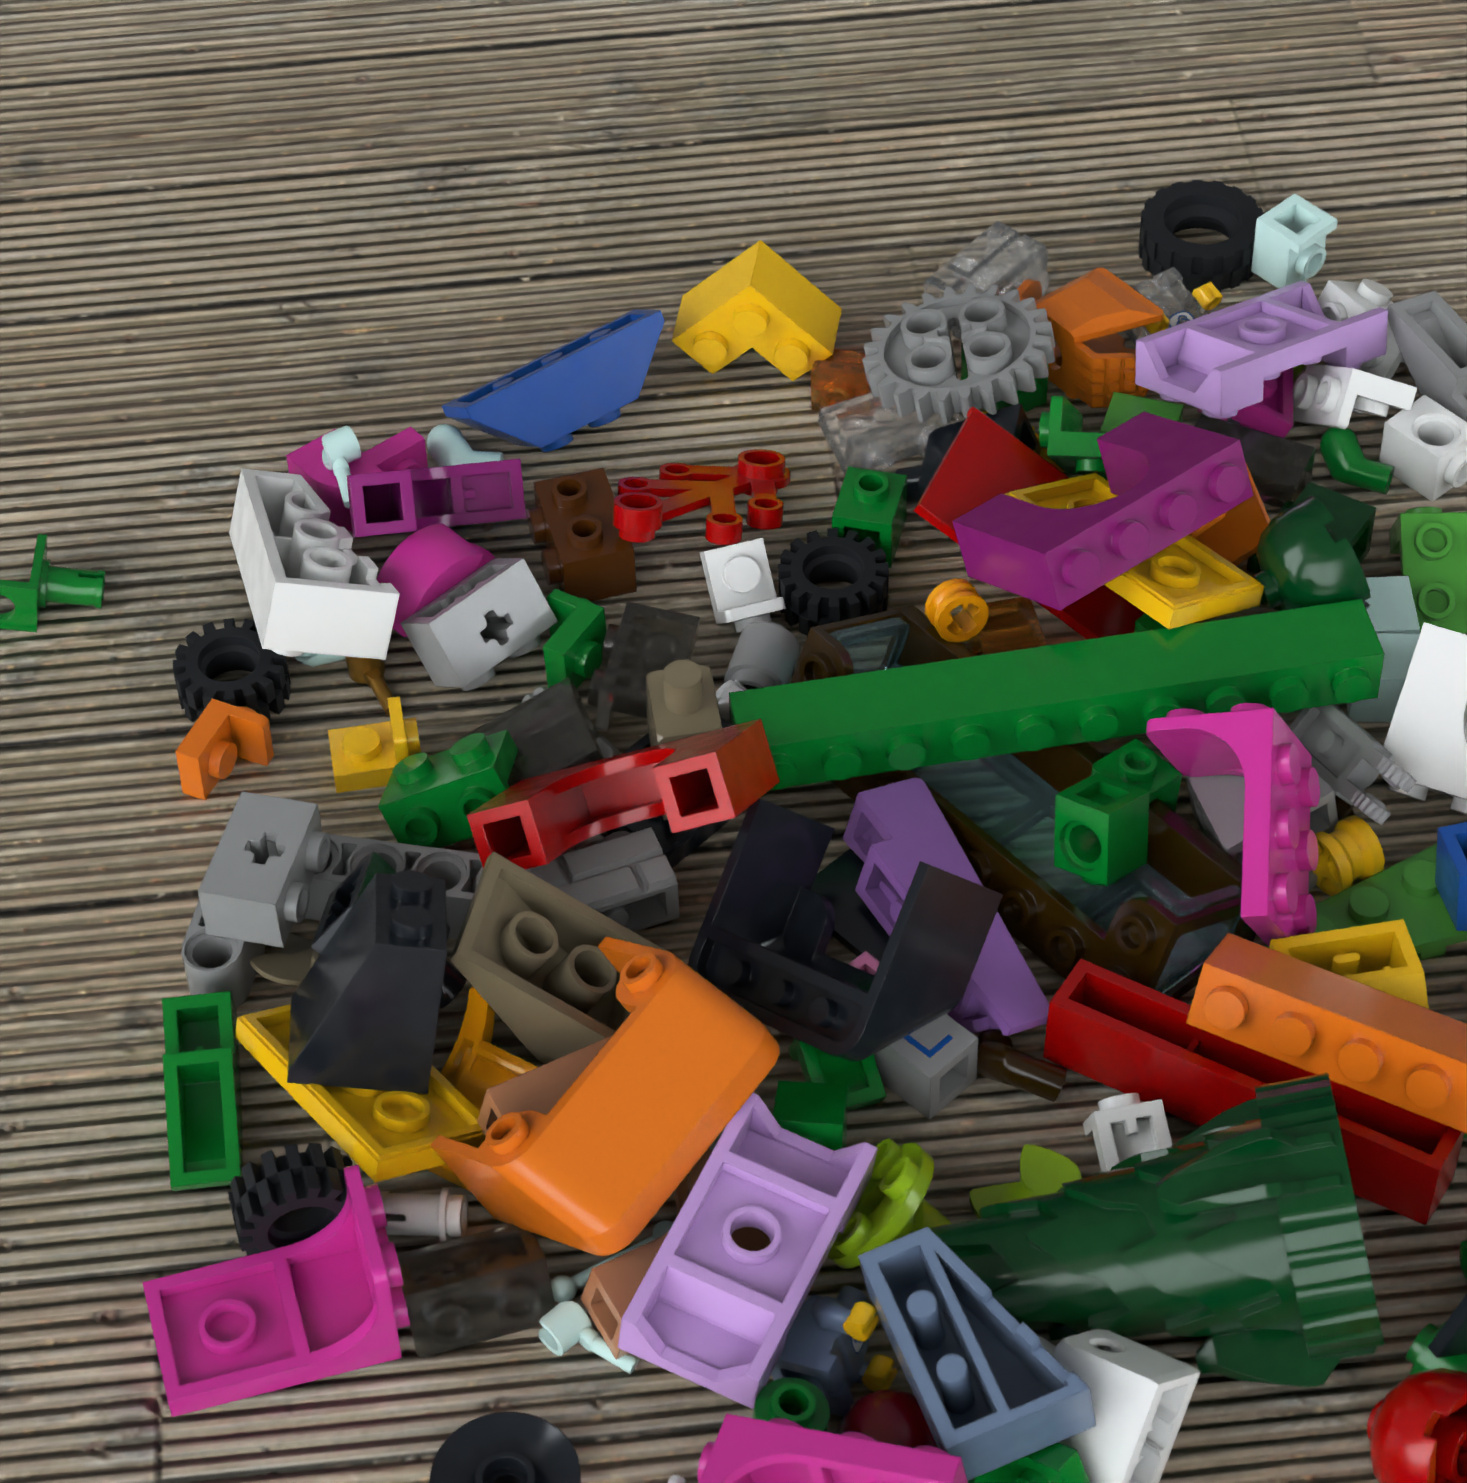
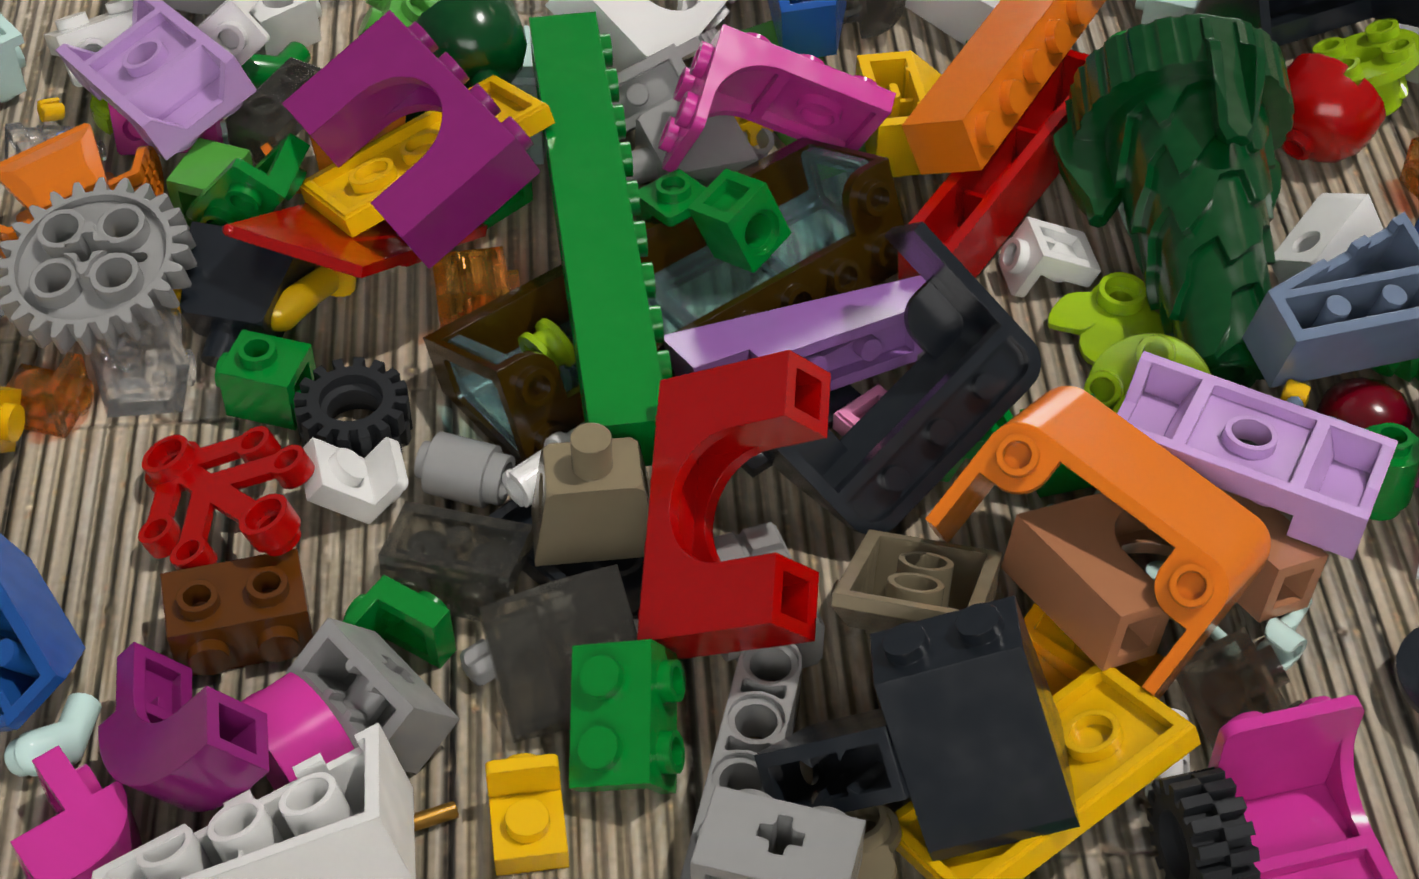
camera: 90 degrees left, 0 degrees up
(340, 449) = (74, 827): light aqua hand -> none
(949, 596) = (459, 290): light orange bush -> none

